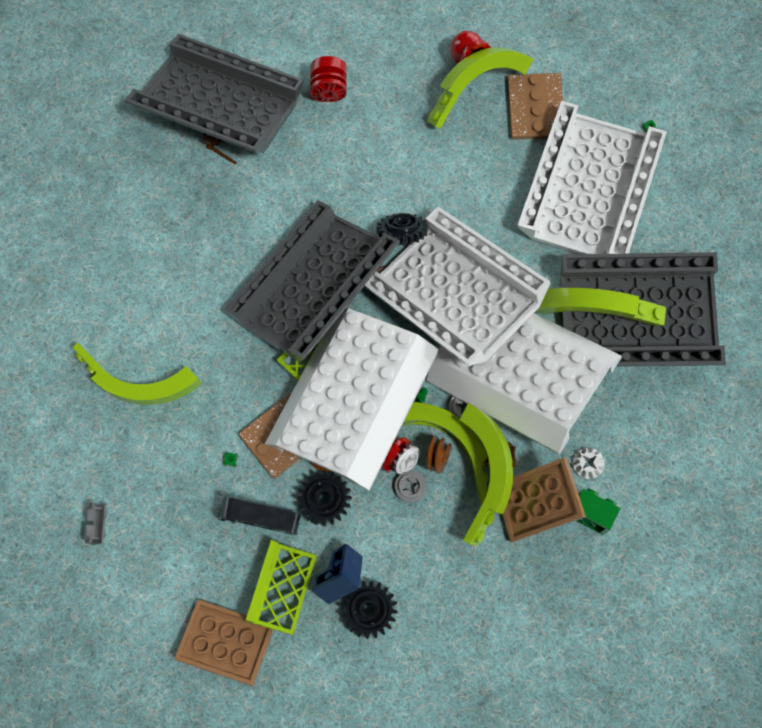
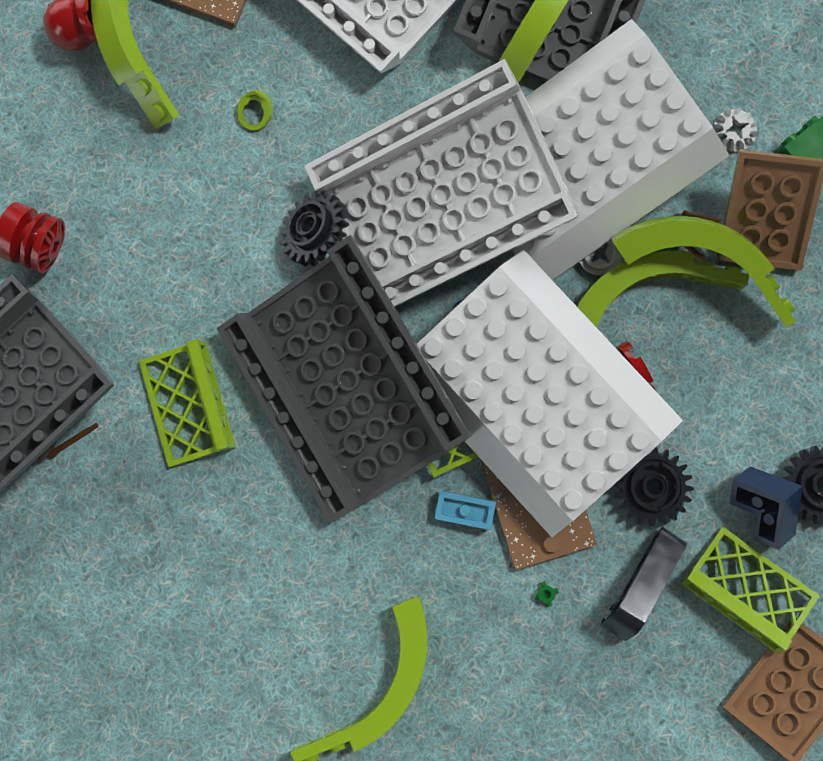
camera: 70 degrees left, 10 degrees up
(264, 388) = (465, 510): none -> medium azure plate
(275, 213) = (210, 397): none -> lime fence
(406, 459) = (642, 349): white gear -> none
(414, 478) = (686, 357): light grey gear -> none
(438, 457) = (654, 312): dark orange piece -> none
(469, 174) = (266, 104): none -> lime piece

